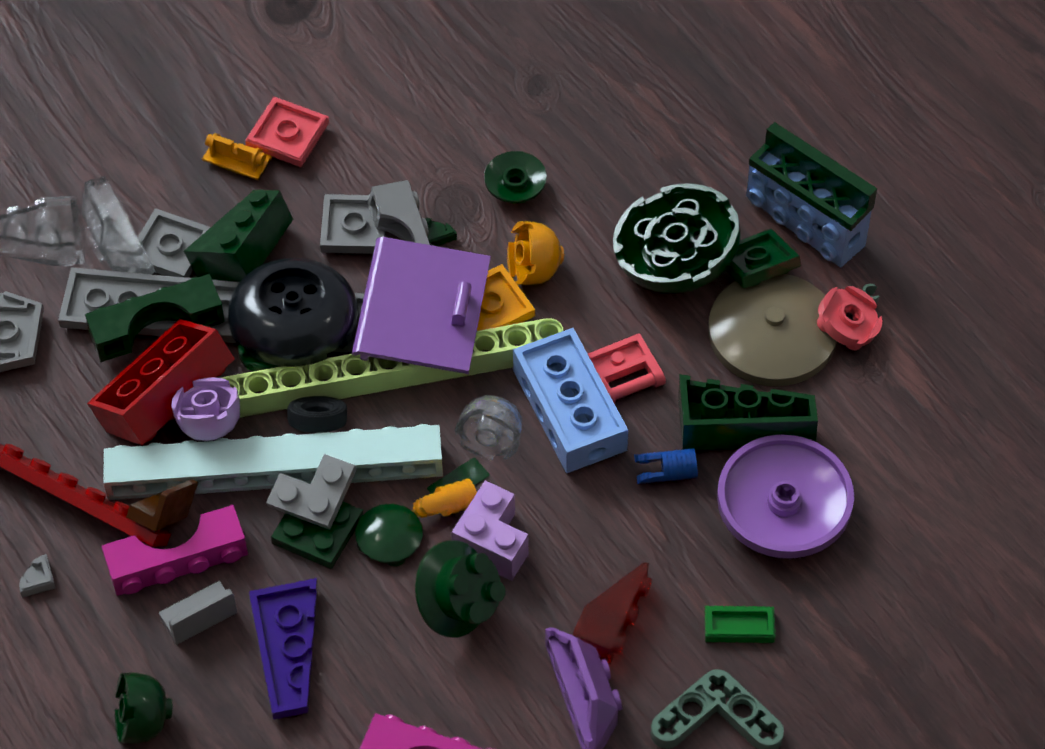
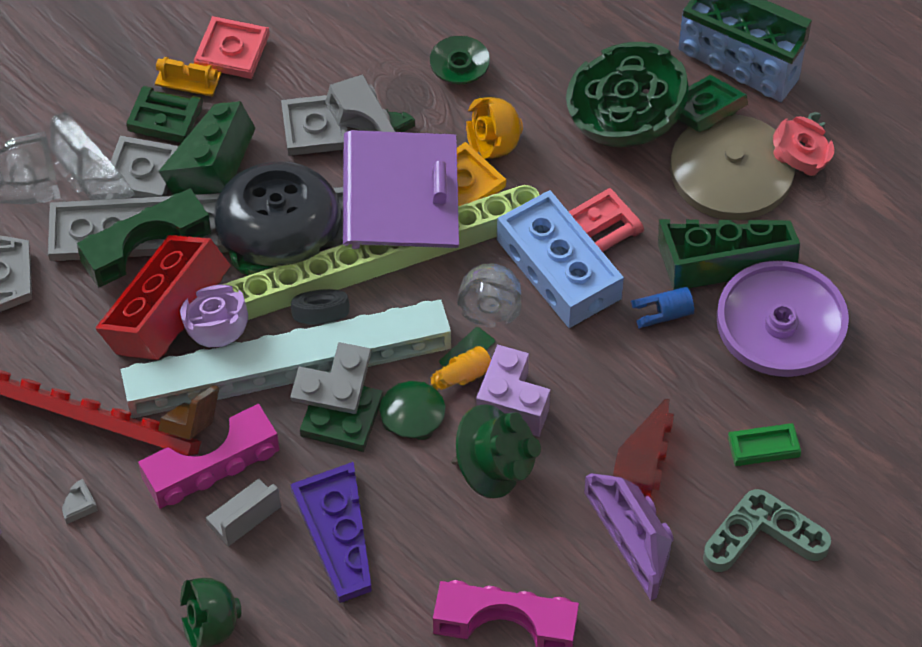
camera: 10 degrees left, 0 degrees up
(201, 198) = (161, 120): none -> dark green plate

